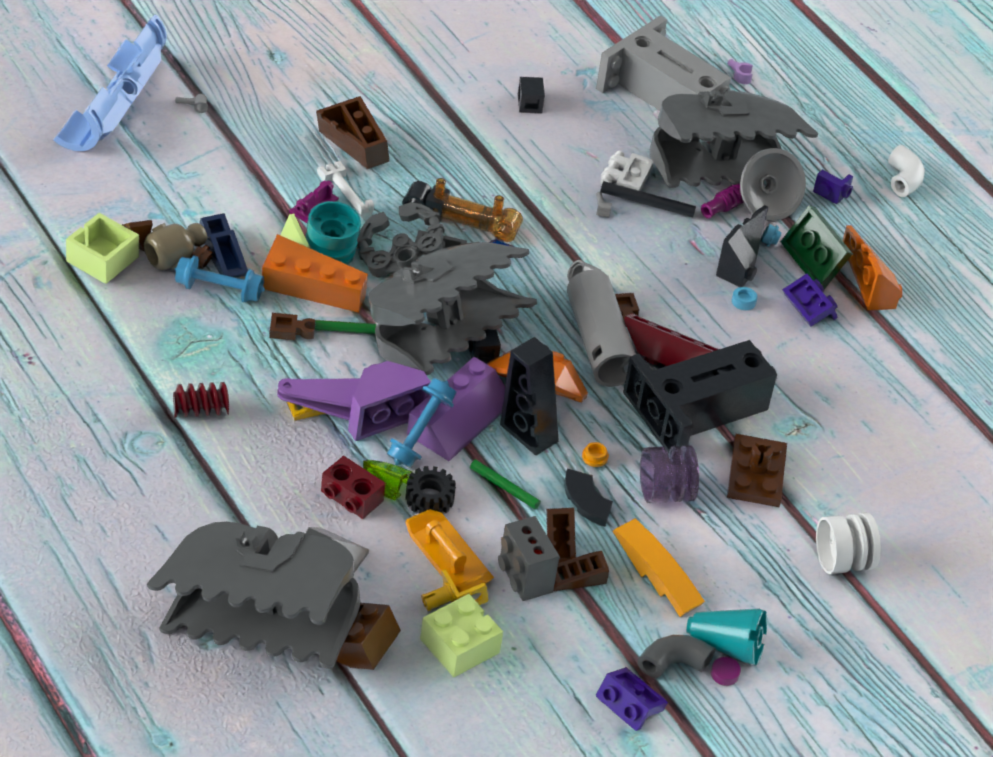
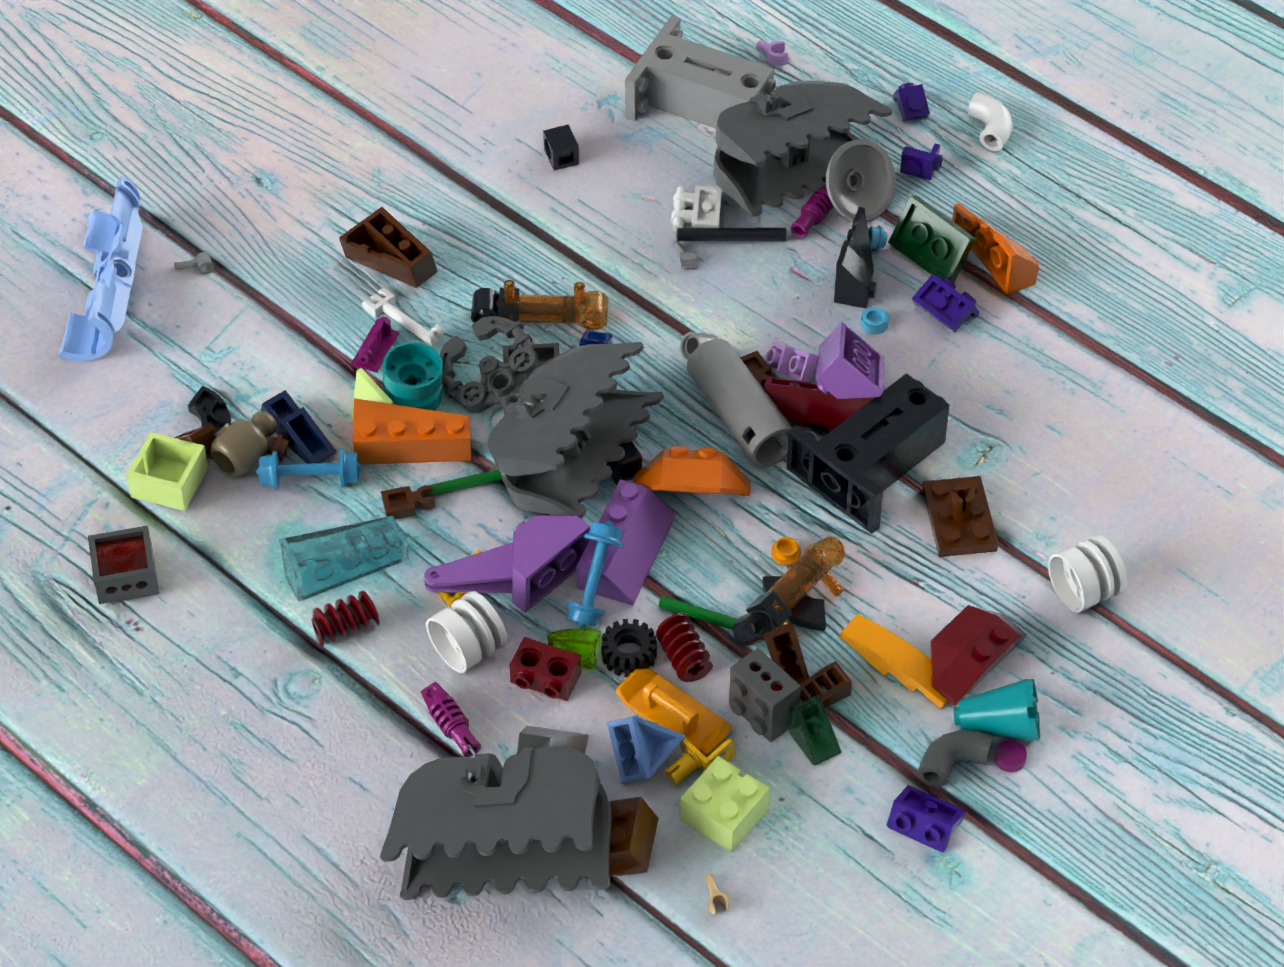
camera: 10 degrees left, 5 degrees up
(36, 308) = (123, 564): none -> dark grey piece
(158, 211) = (210, 409): none -> black tile
(218, 351) = (341, 555): none -> clear light blue wedge
(256, 499) = (450, 718): none -> magenta hinge
(296, 437) = (466, 631): none -> white wheel
(407, 568) = (640, 746): none -> medium blue slope
(425, 706) = (716, 896): none -> tan hand
(476, 504) = (684, 648): none -> dark red piece
(530, 397) = (701, 510): black wedge -> none
(561, 599) = (813, 730): none -> clear green slope
(586, 483) = (775, 606): none -> clear orange piece
(657, 308) = (791, 362): none -> lavender slope
(669, 474) = (875, 552): clear purple wheel -> none
(704, 322) = (849, 366): none -> medium lavender slope
(723, 575) = (970, 650): none -> dark red wedge
(843, 139) = (911, 101): none -> dark purple bracket

